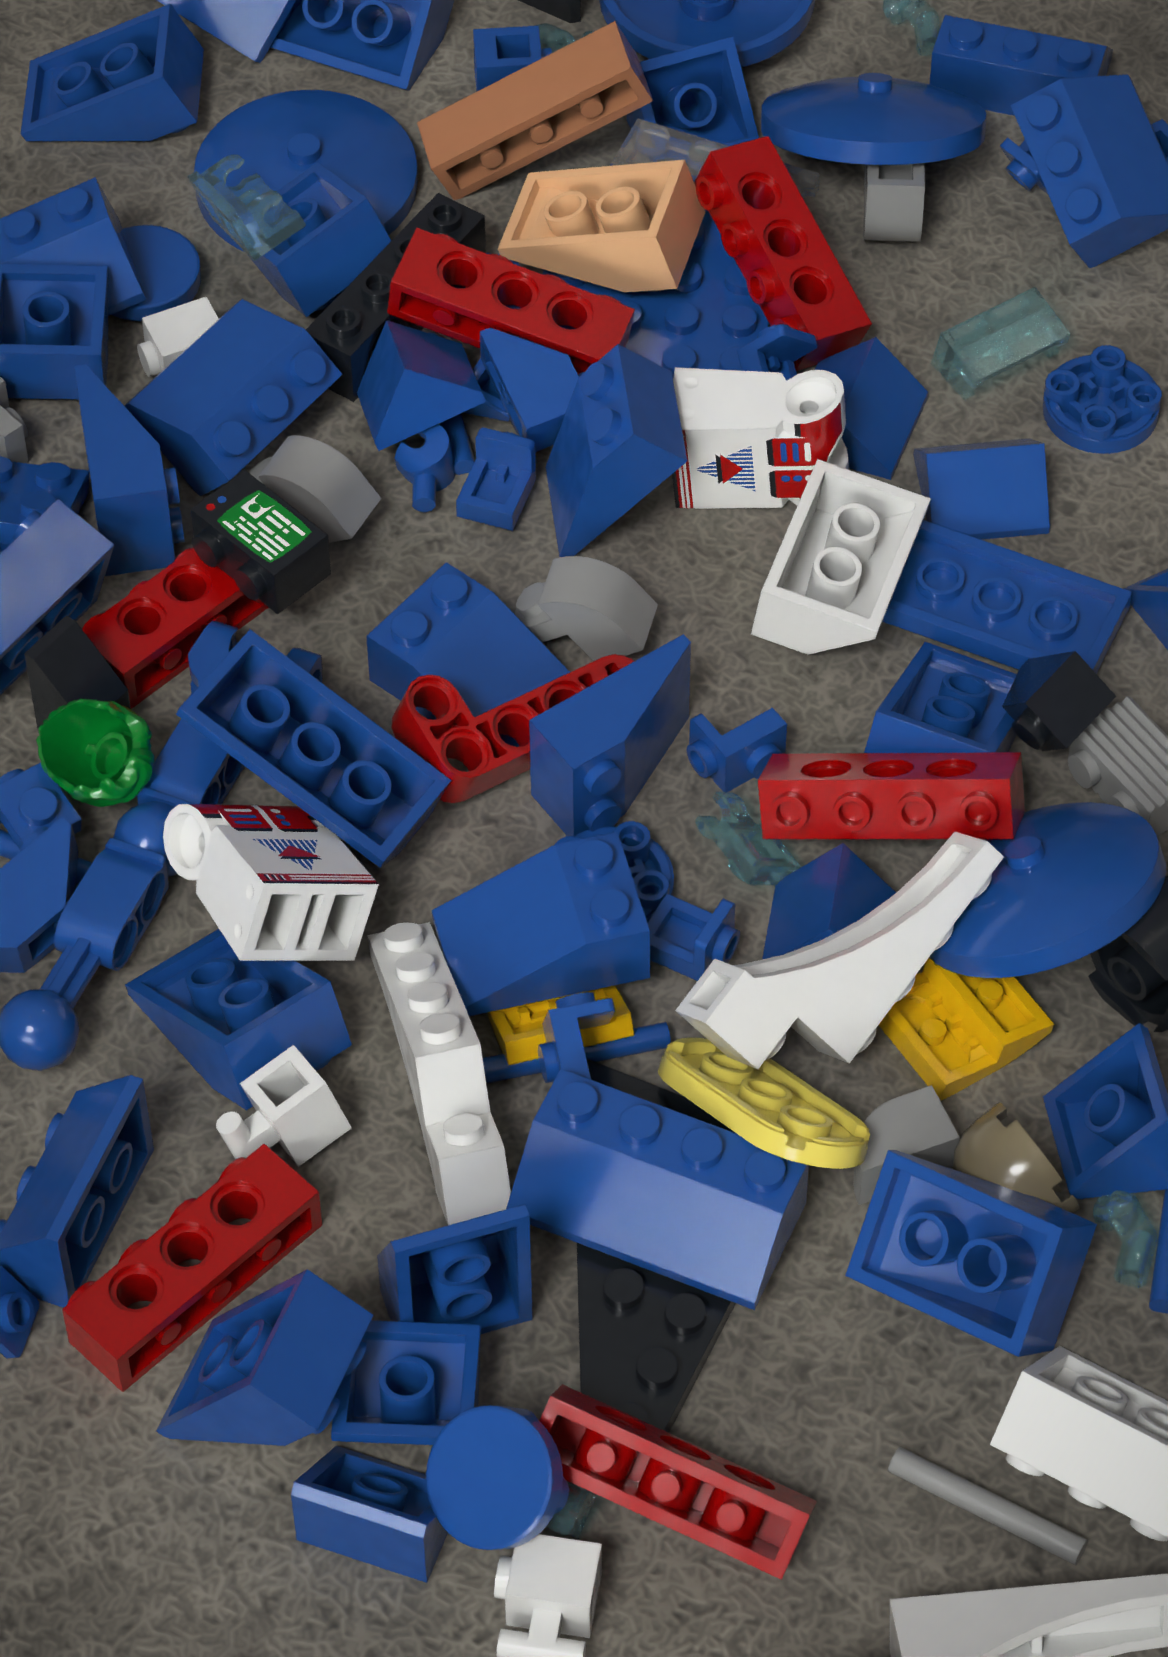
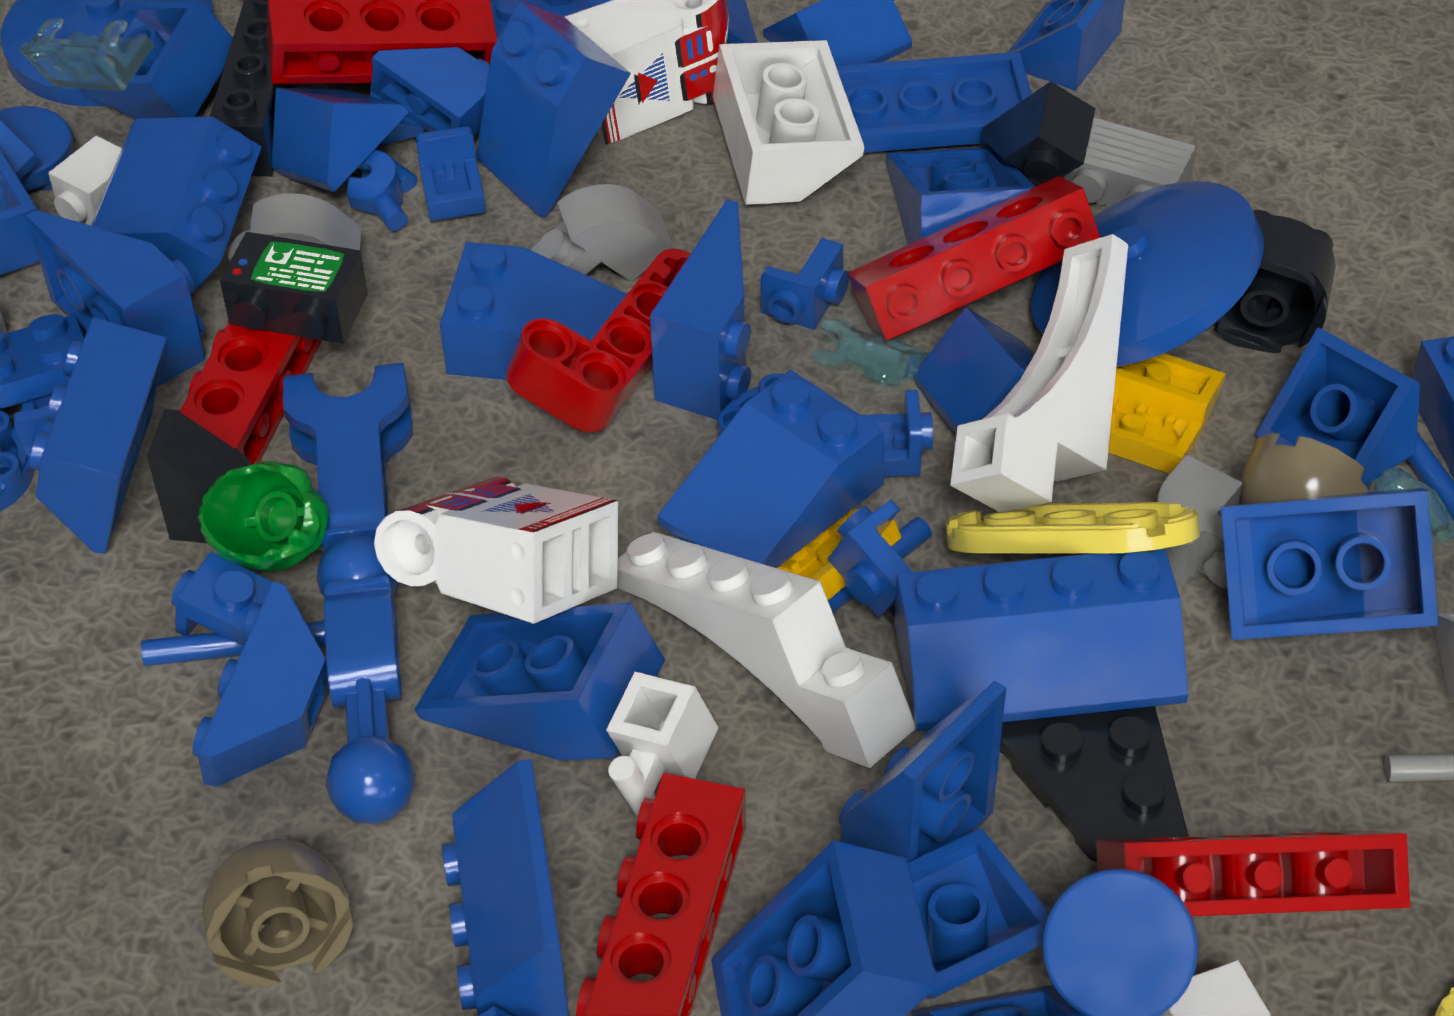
camera: 30 degrees left, 5 degrees down
(315, 749) = (470, 420): blue slope -> none

